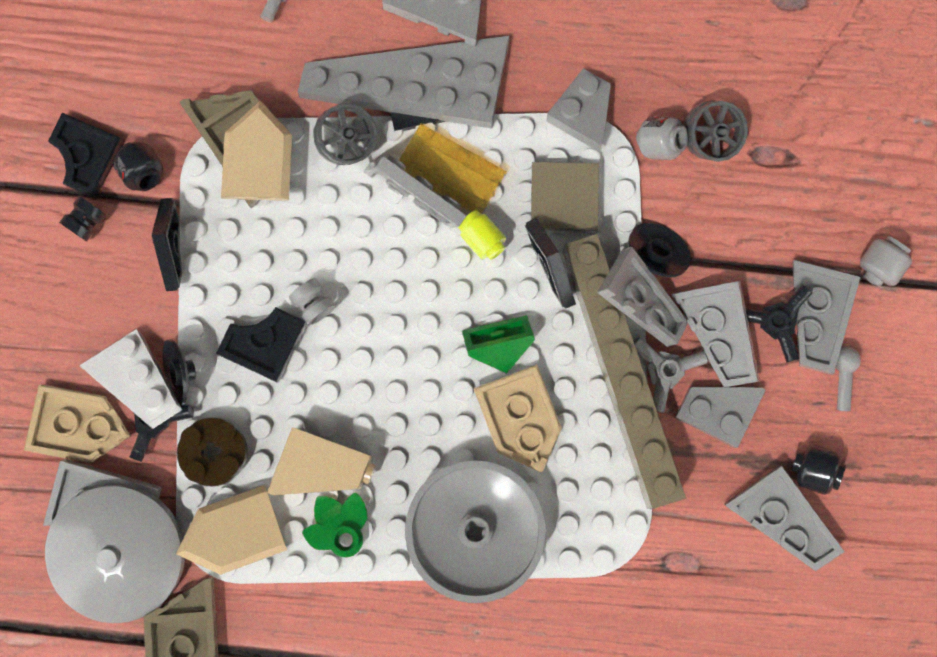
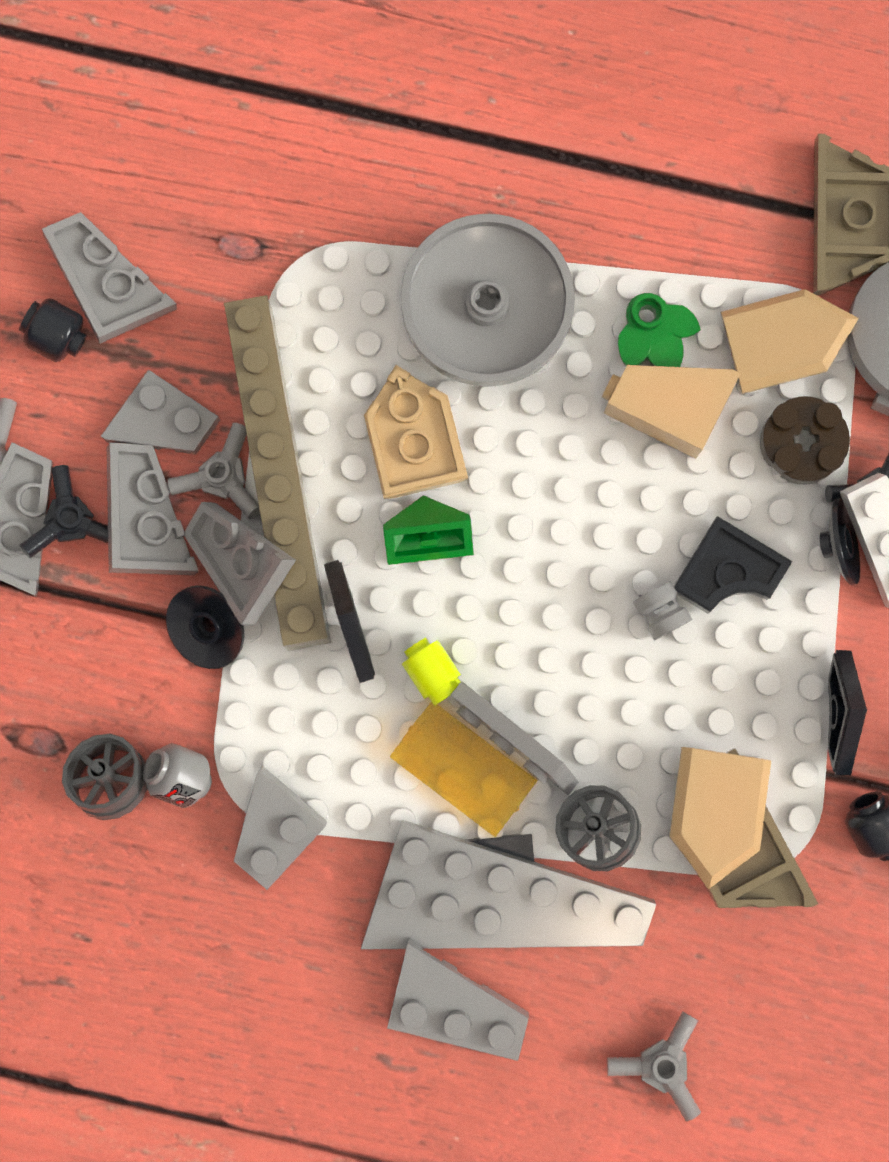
camera: 175 degrees left, 0 degrees up
(565, 195) = (317, 713): dark tan tile -> none

